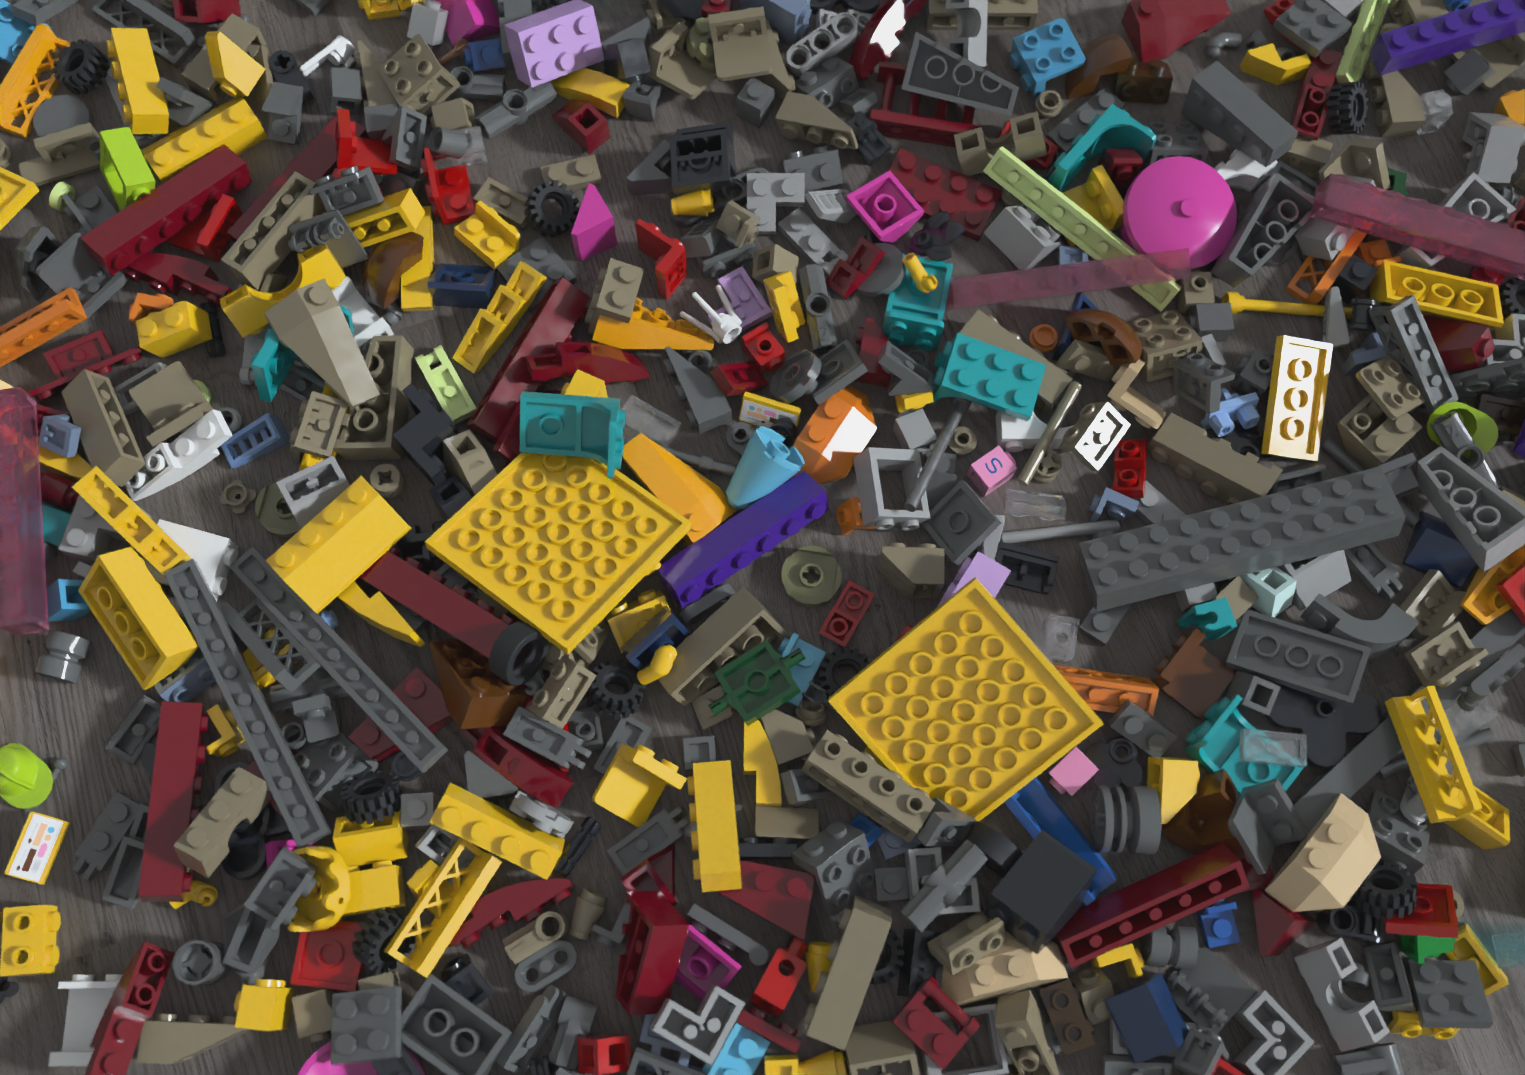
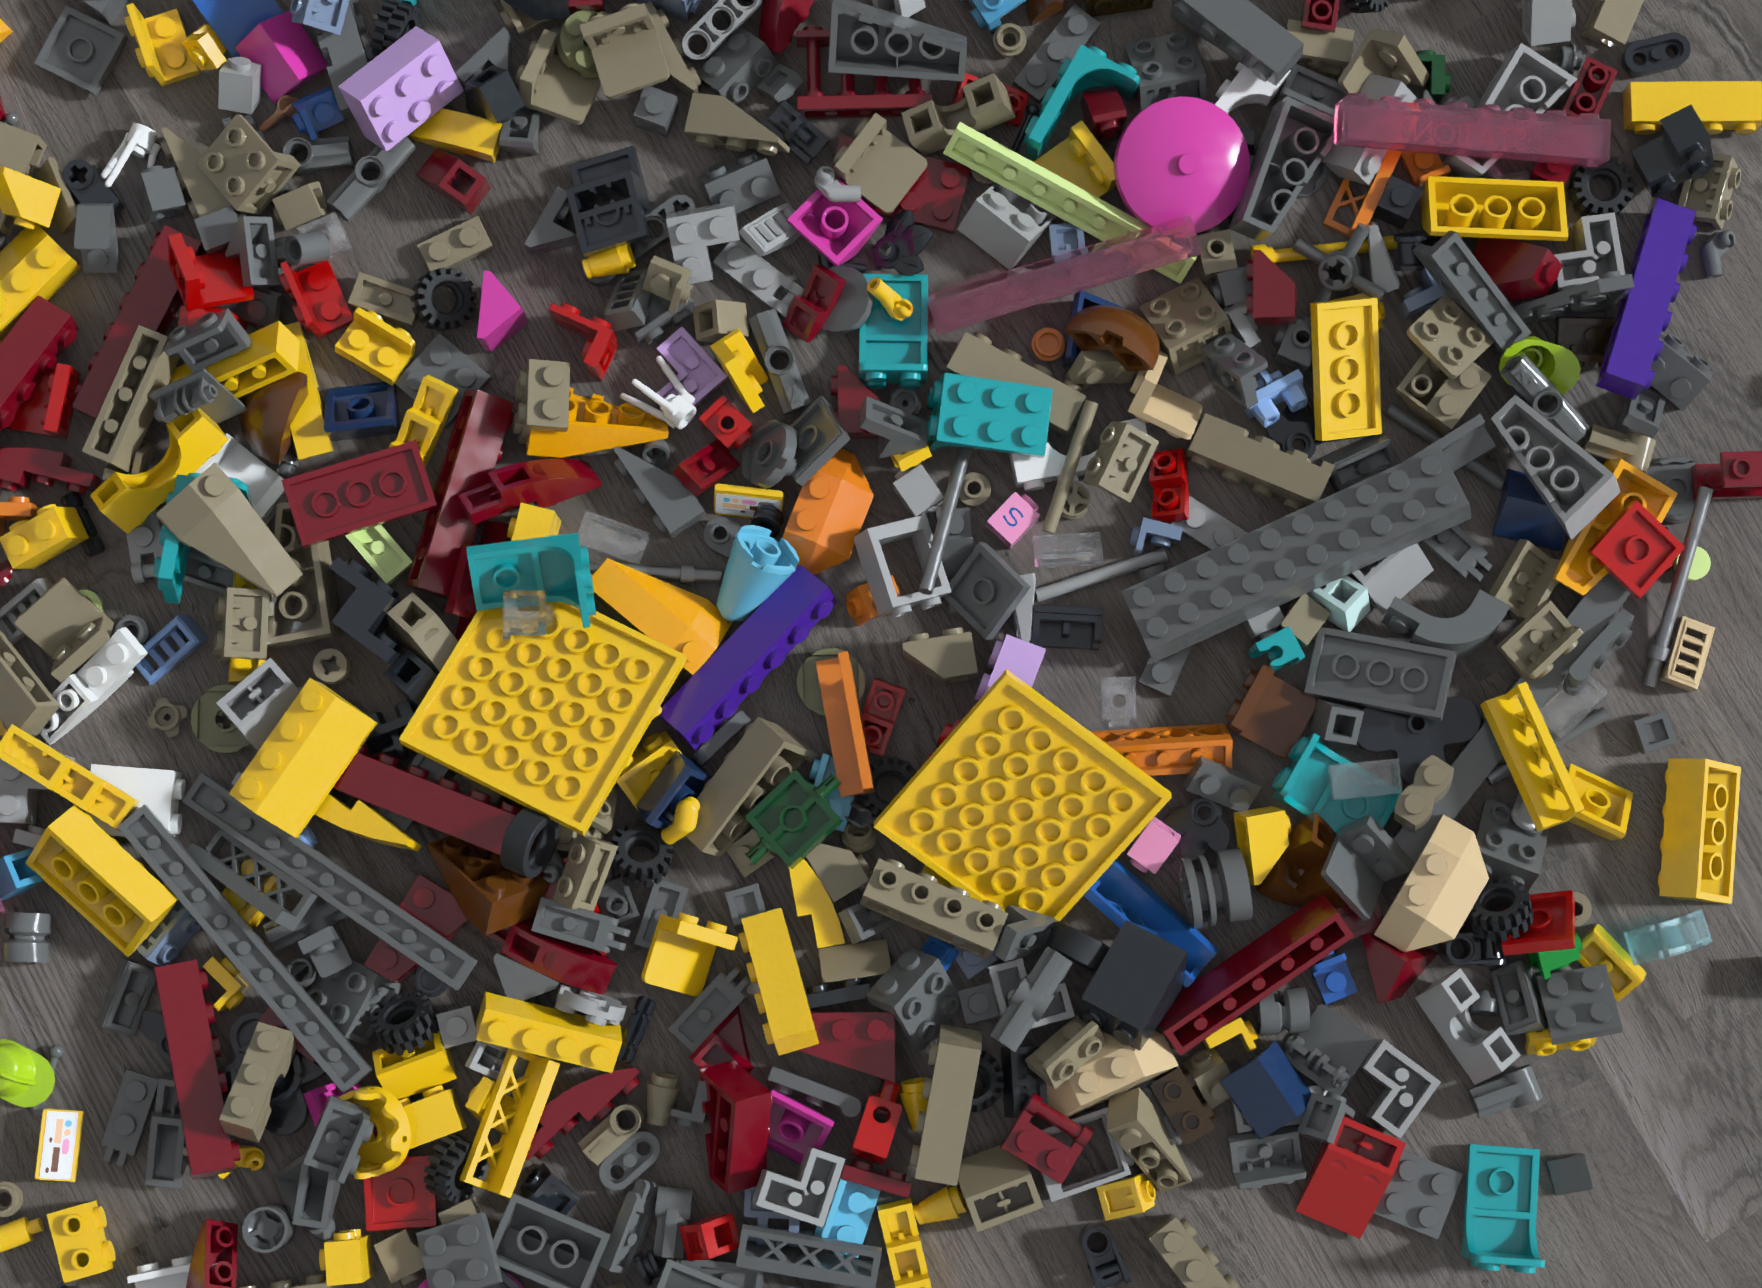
camera: 10 degrees left, 10 degrees up
(442, 338) = (359, 493): none -> dark red plate
(560, 459) = (525, 613): none -> clear brick
(818, 612) = (845, 725): none -> orange fence
(888, 179) = (833, 190): none -> light grey arm
(927, 169) = (879, 164): none -> dark tan bracket
(1245, 323) = (1273, 292): none -> dark red slope
(1290, 312) = (1352, 267): none -> dark grey bar
(1327, 769) = (1429, 787): none -> dark tan brick

